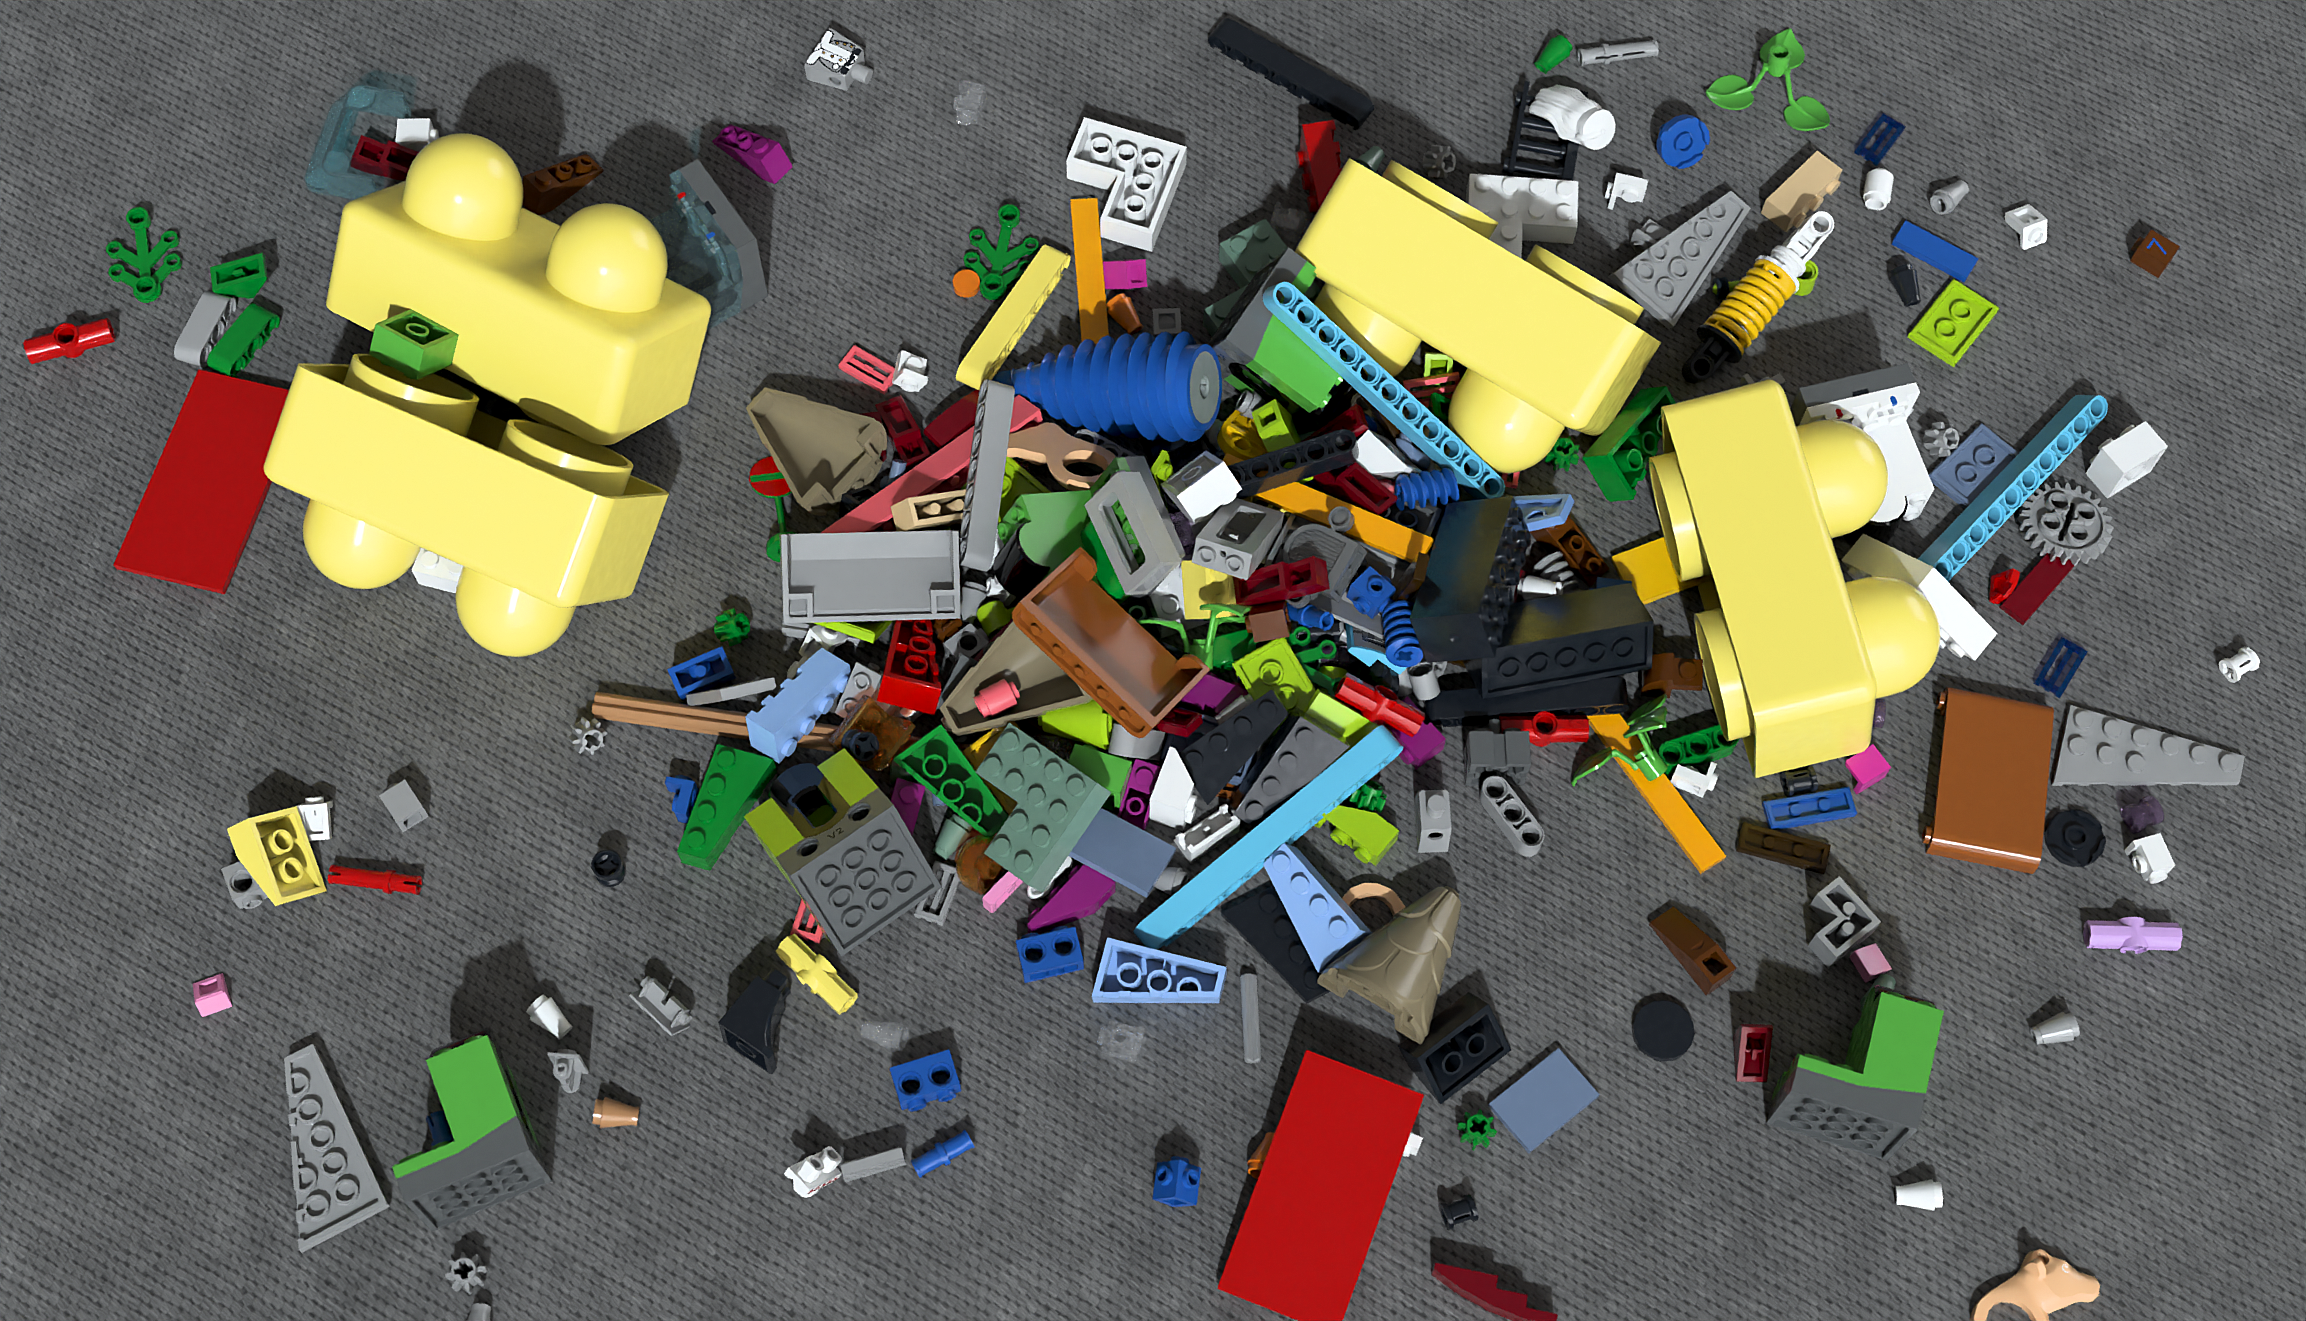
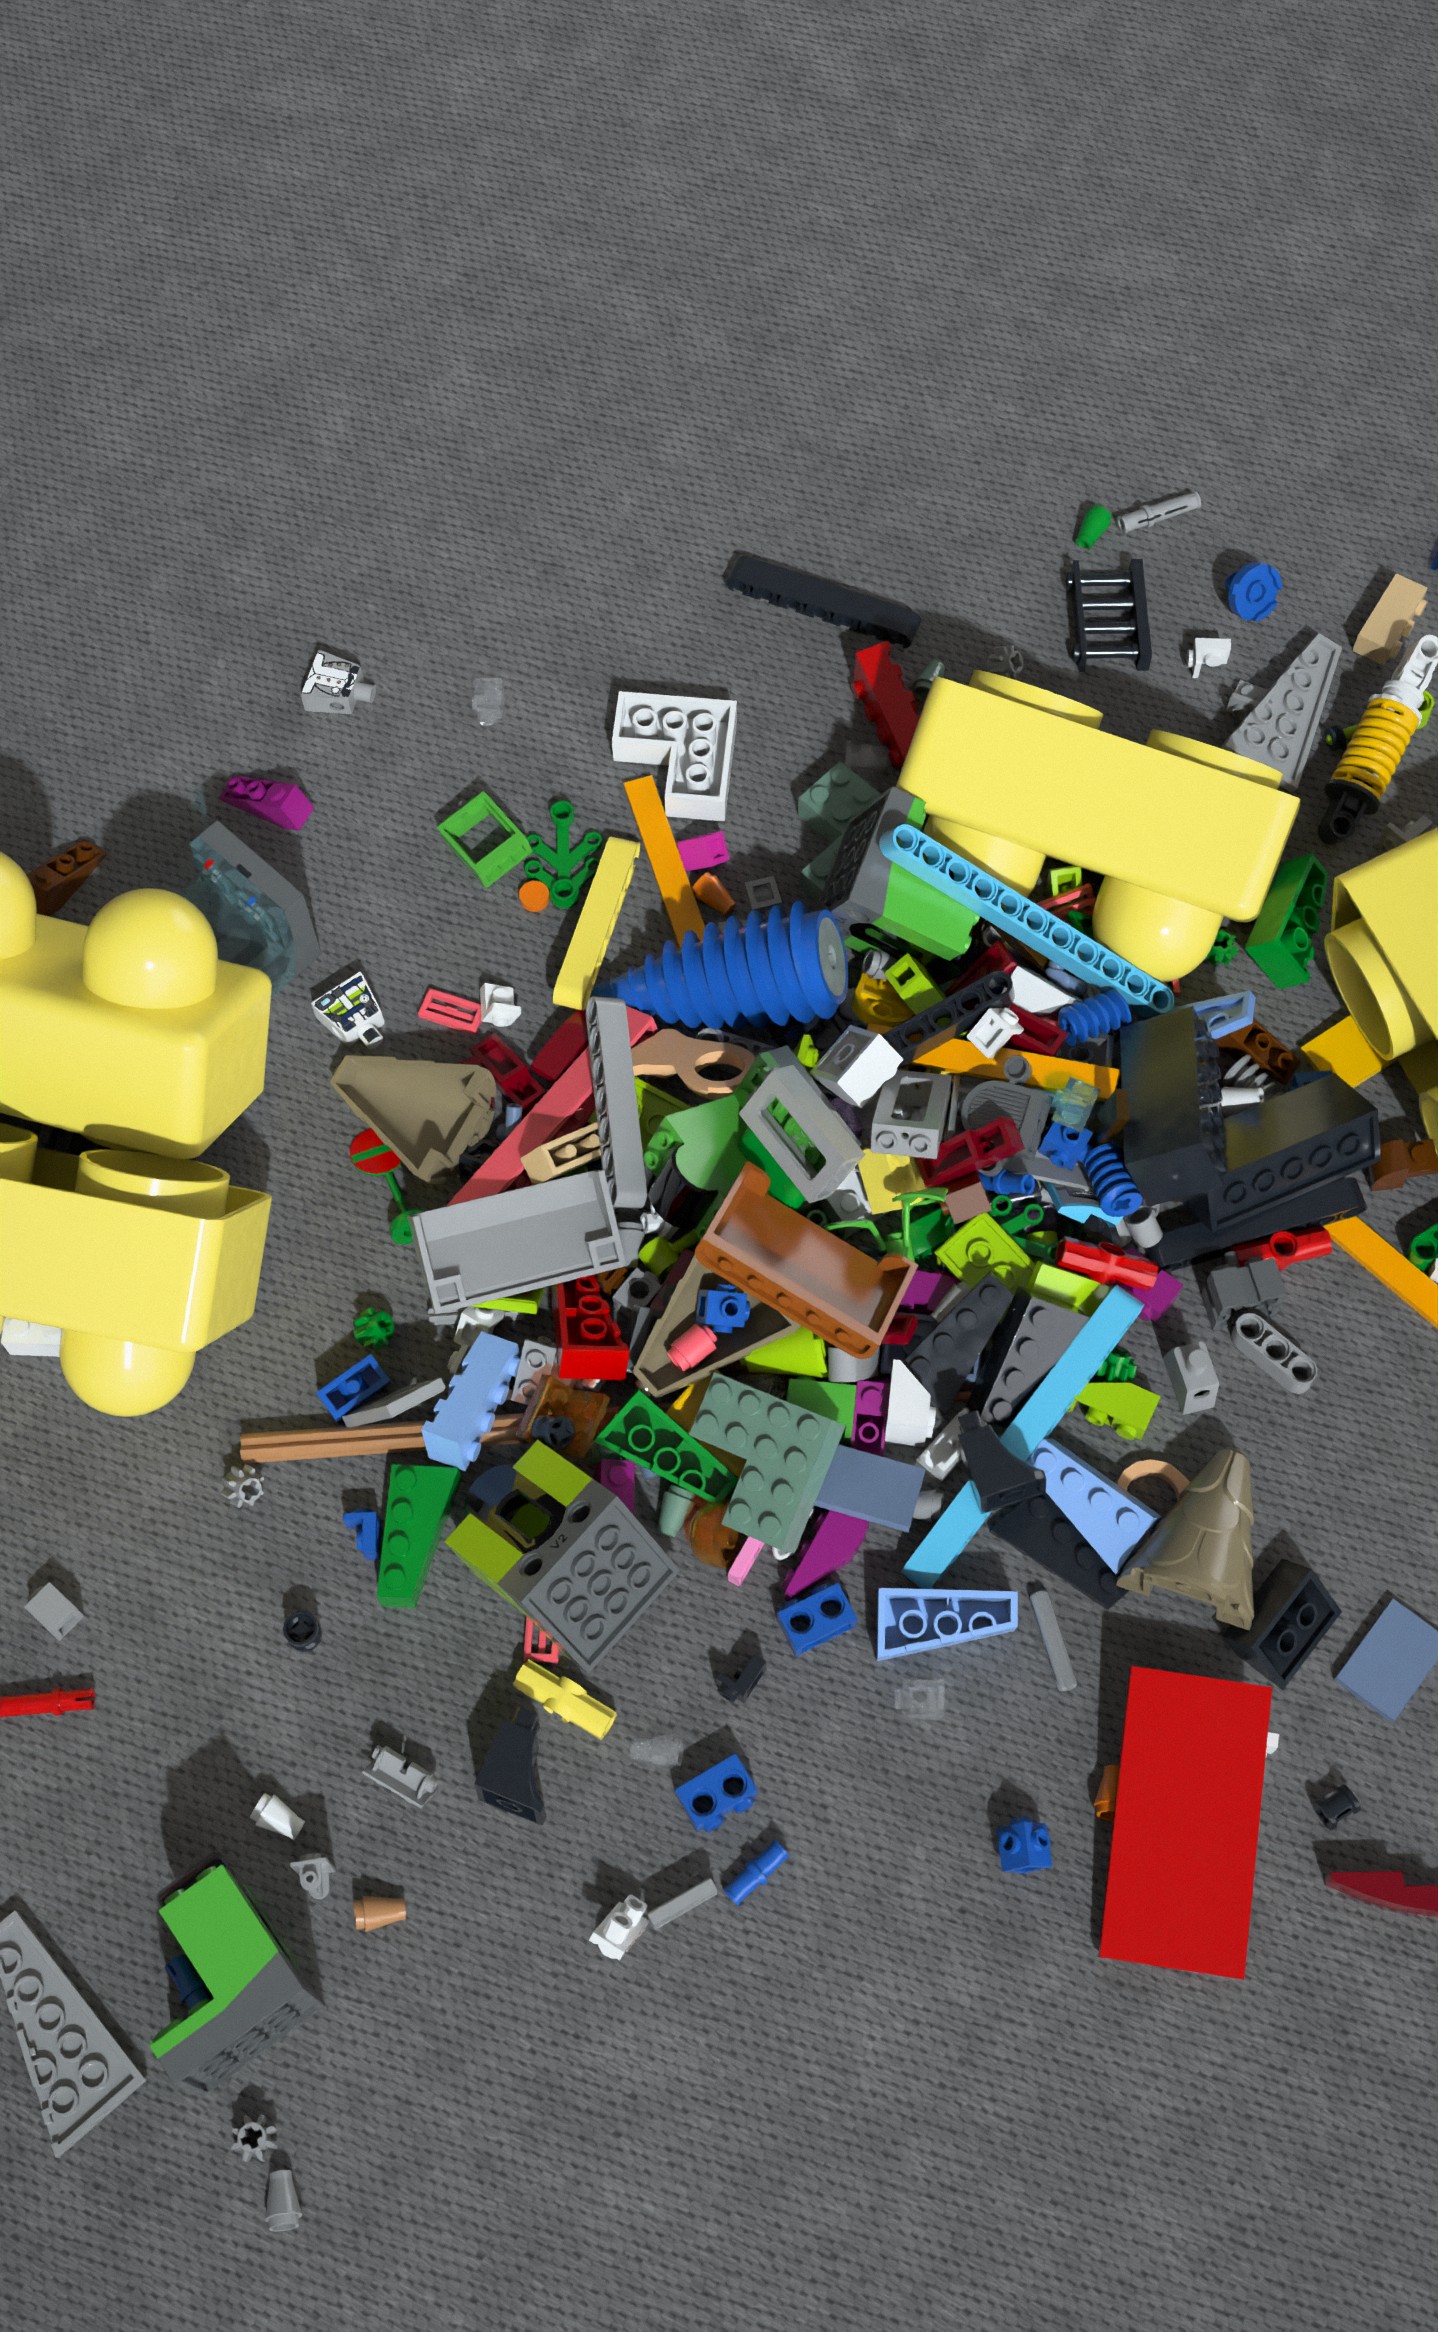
camera: 10 degrees left, 0 degrees up
(780, 352) = (351, 1012): none -> torso
(930, 916) = (673, 1605): light grey tile -> none
(942, 245) = (501, 858): none -> bright green window
(977, 990) = (747, 1678): none -> black bracket
(1020, 670) = (722, 1308): none -> blue brick
(1230, 861) = (993, 1470): none -> black hips
(1331, 481) = (994, 1030): none -> white bracket
(1384, 560) = (1074, 1104): none -> clear light blue brick
(1476, 1121) = (1323, 1705): green gear -> none
(1526, 208) = (1124, 690): white brick -> none
(1574, 116) = (1136, 587): white hair -> none
(1648, 717) = (1400, 1258): bright green plant -> none
(1779, 57) = (1330, 483): bright green plant -> none

